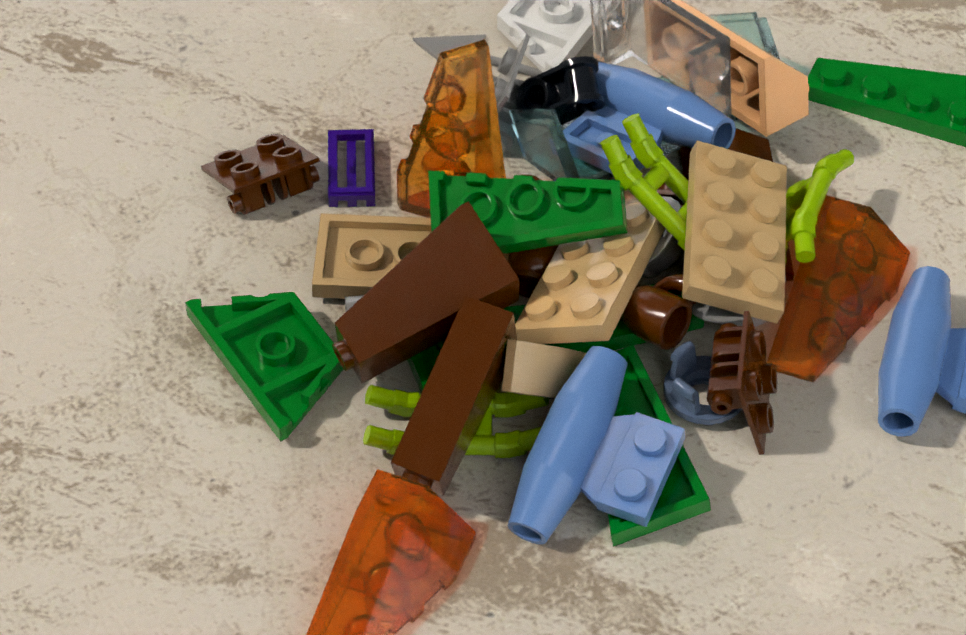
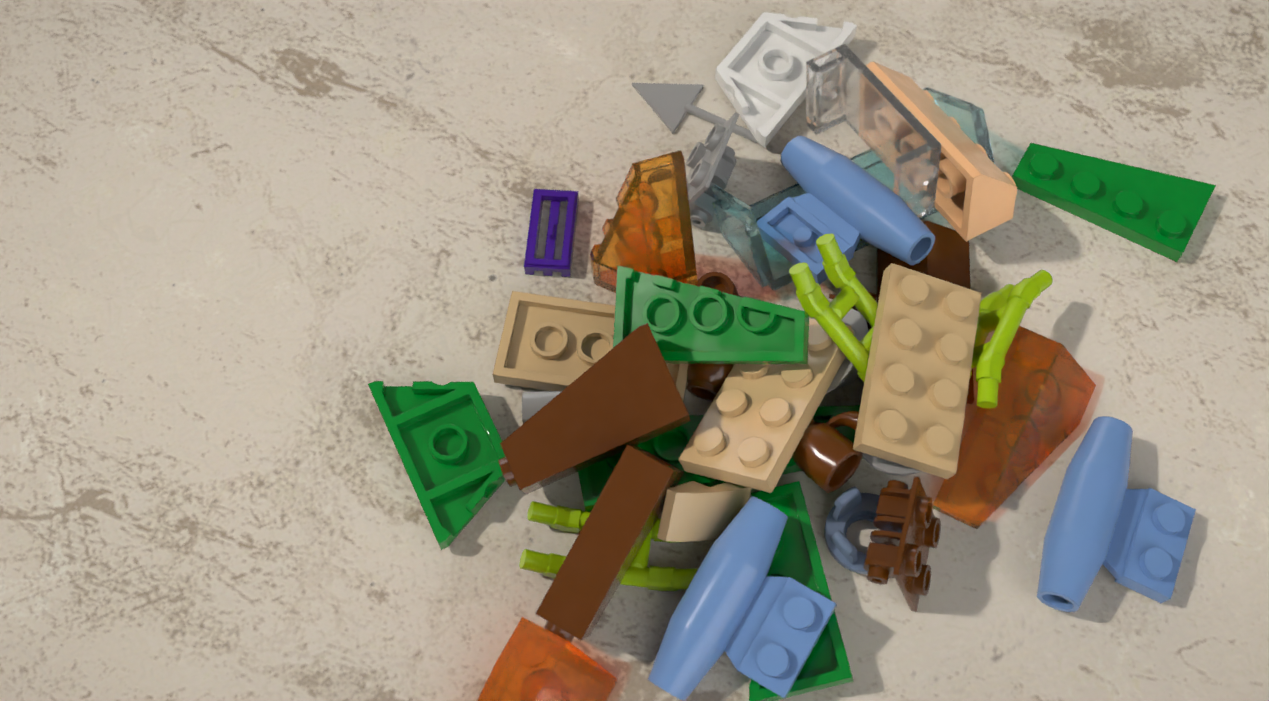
camera: 10 degrees right, 15 degrees up
(251, 170) = (462, 226): reddish brown hinge -> none
(566, 88) = (765, 173): black piece -> none

